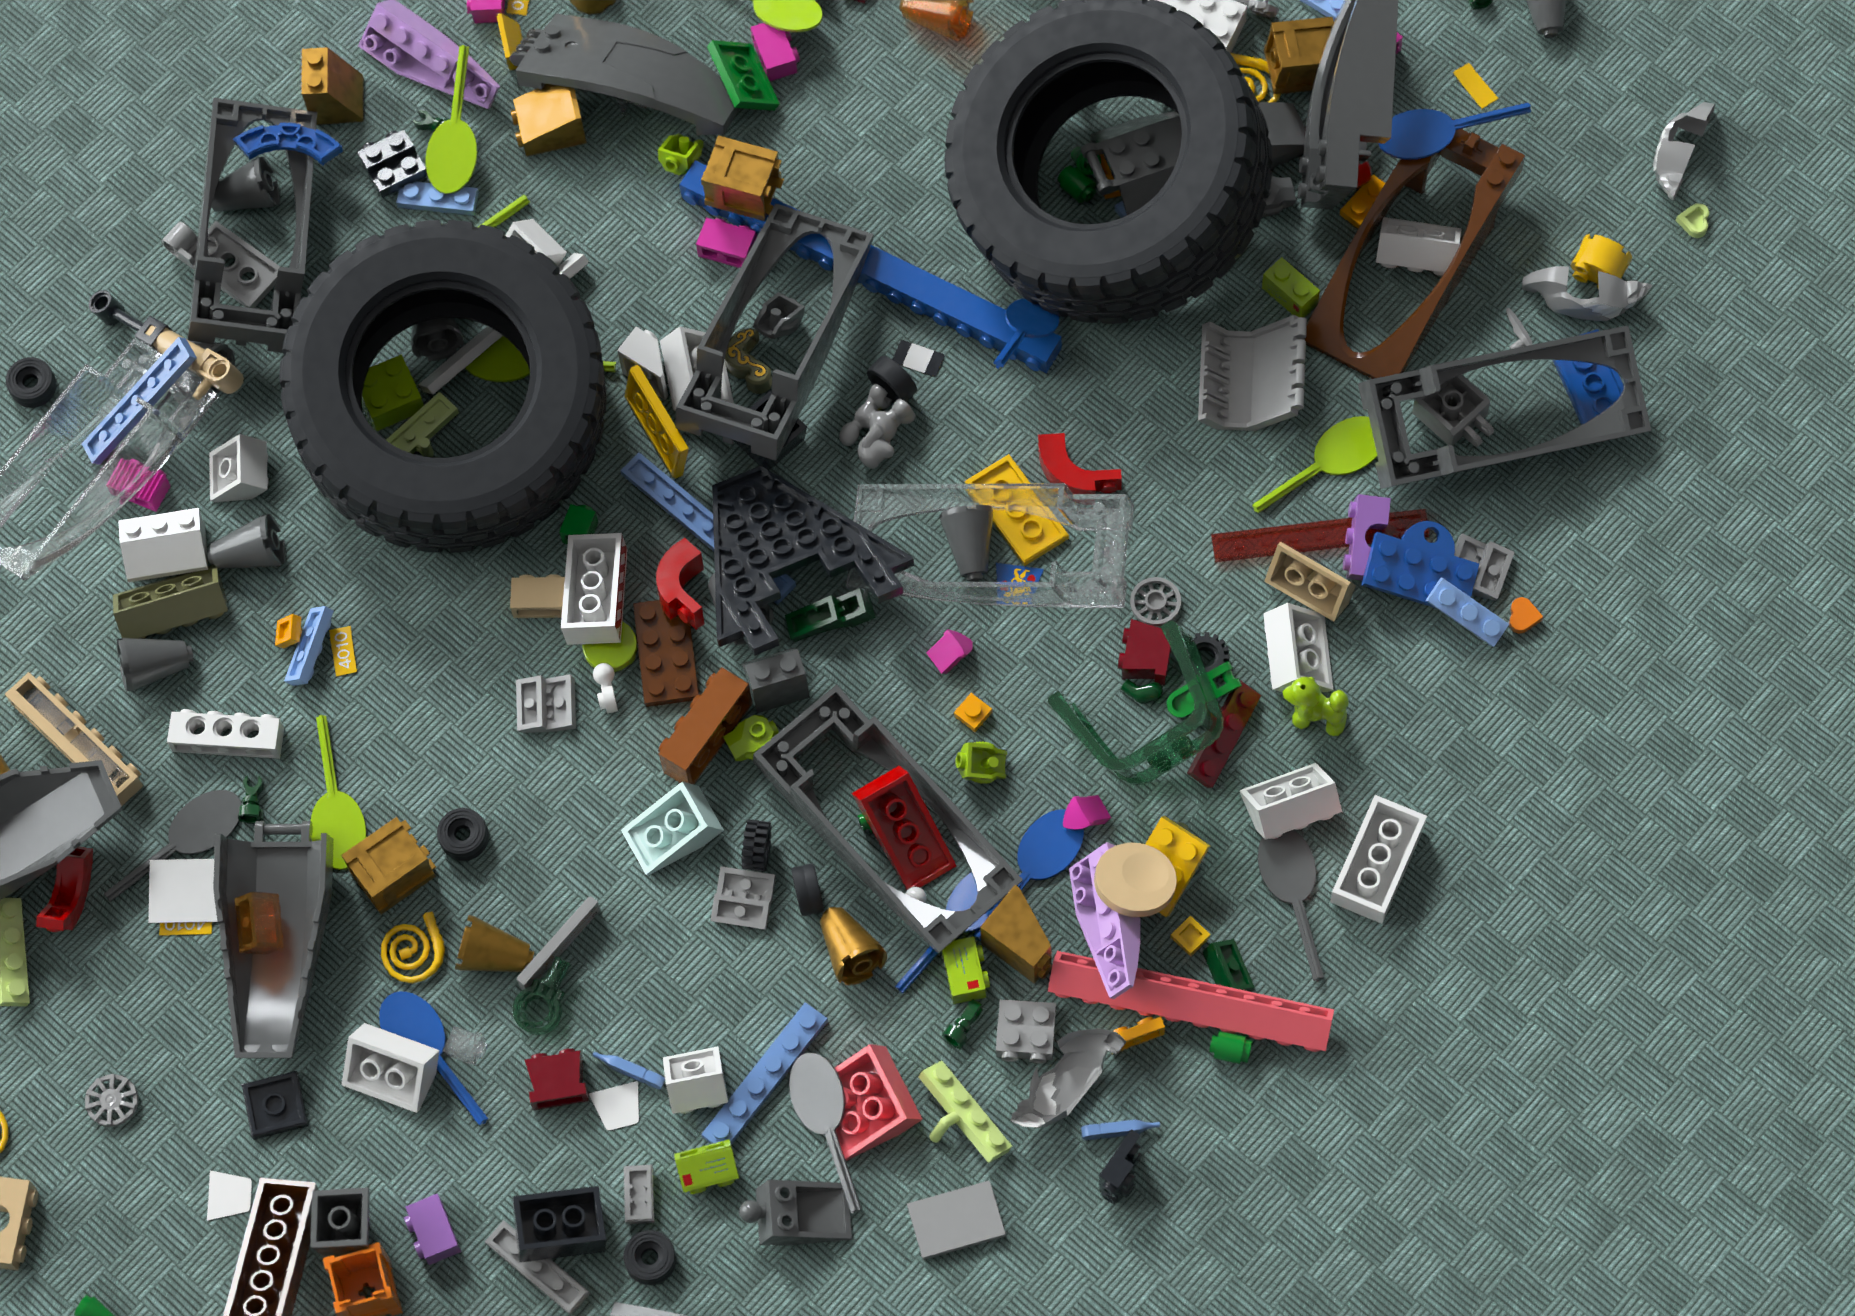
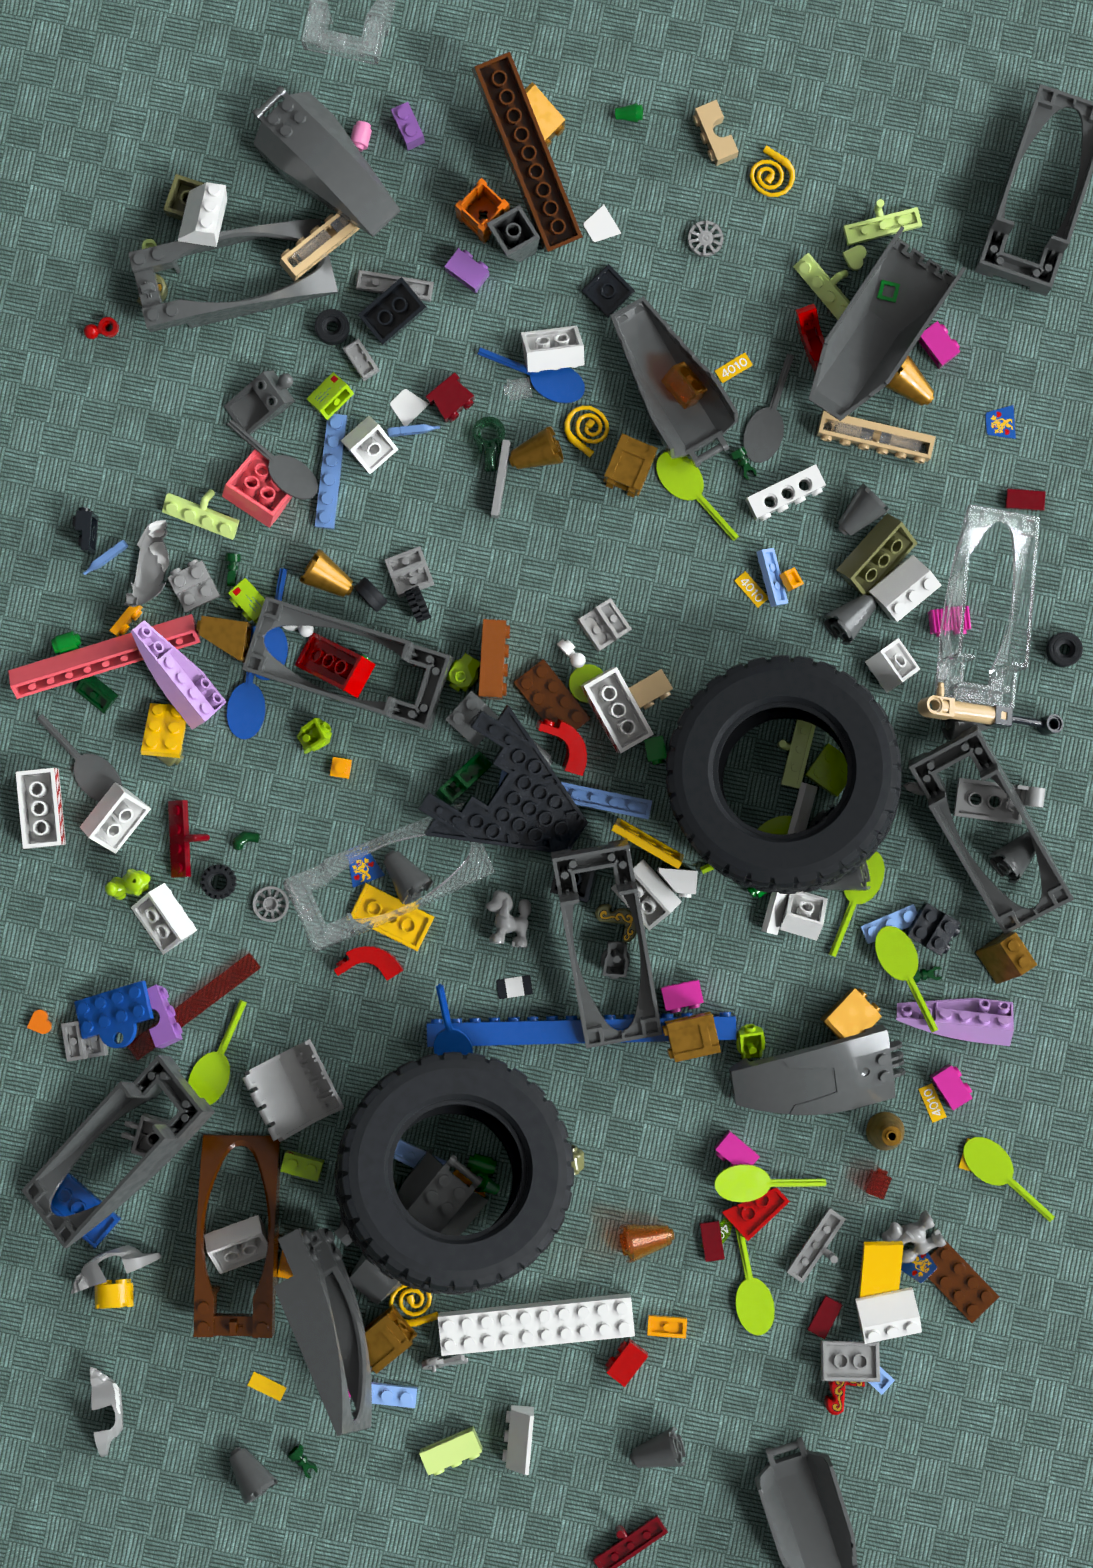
camera: 145 degrees right, 20 degrees up
(128, 411) = (979, 667): medium blue plate -> none
(181, 891) = (748, 384): white sticker -> none
(288, 137) = (1006, 902): blue tile -> none
(468, 848) = (609, 506): black tyre -> none
(510, 37) = (914, 1062): yellow slope -> none
(672, 828) = (476, 588): light aqua slope -> none
(743, 75) = (743, 1119): green plate -> none
(892, 378) = (516, 956): black tyre -> none
(950, 650) = (375, 799): dark pink tile -> none
(956, 1220) = (169, 450): light grey tile -> none
(1085, 812) = (233, 739): dark pink tile -> none
(1135, 879) = (171, 704): tan piece -> none
(1145, 653) = (255, 865): dark red hips -> none
(1170, 747) = (198, 794): clear green windscreen -> none
(1181, 702) = (204, 856): green plate -> none
(1190, 936) = (128, 698): yellow plate -> none
(1309, 582) = (178, 967): tan slope -> none
(1429, 131) = (261, 1319): blue piece -> none
(1467, 612) = (72, 1001): light blue plate -> none
(1519, 330) = (142, 1218): light grey bar -> none
(1694, 220) = (74, 1364): yellowish green tile -> none

